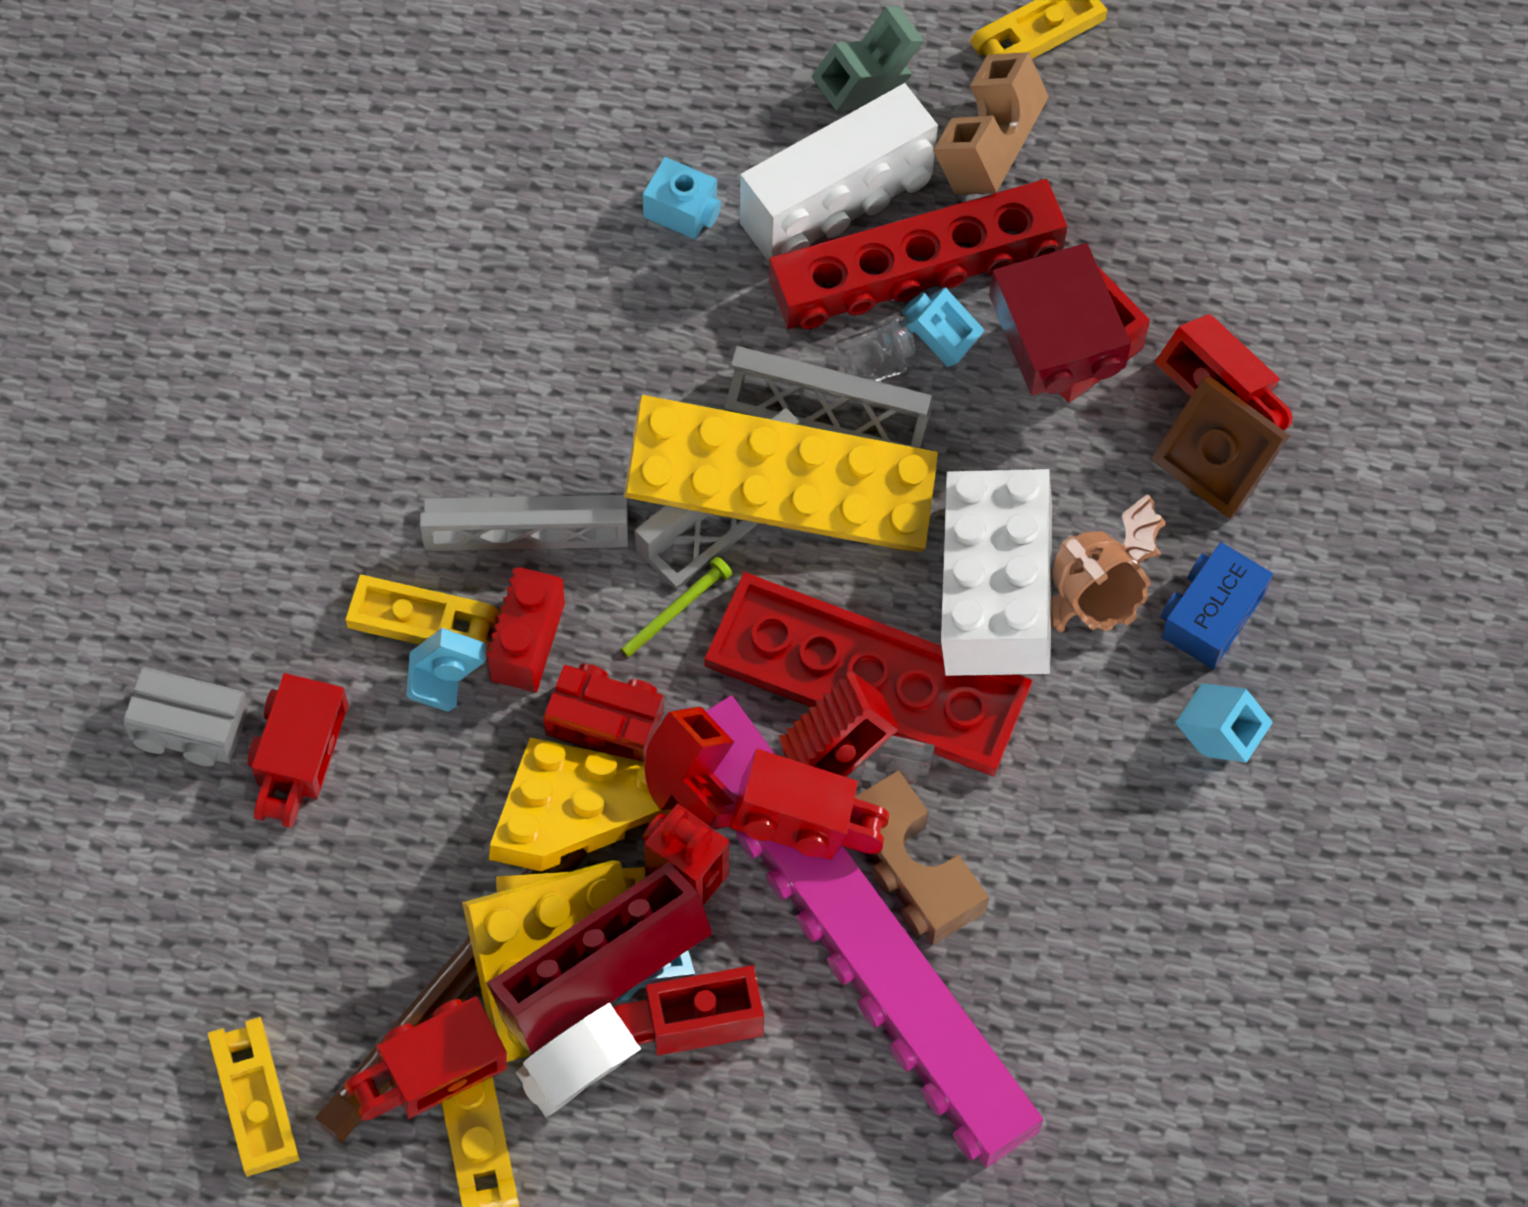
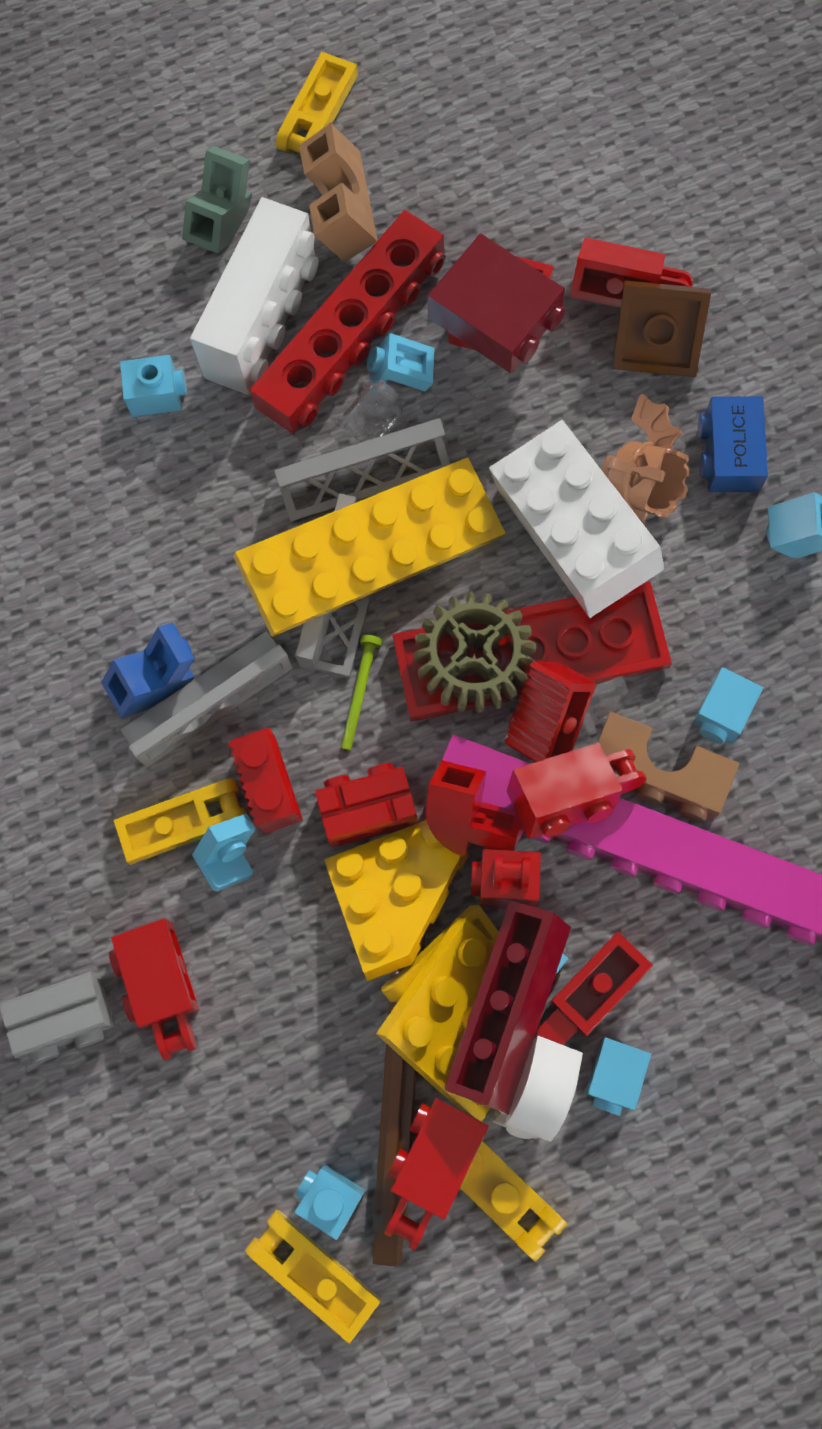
camera: 25 degrees left, 10 degrees up
(315, 1035) = (328, 1200): none -> medium azure brick
(488, 466) = (150, 675): none -> blue brick
(662, 1105) = (617, 1076): none -> medium azure brick
(847, 624) = (453, 623): none -> olive gear
(1020, 844) = (726, 707): none -> medium azure brick

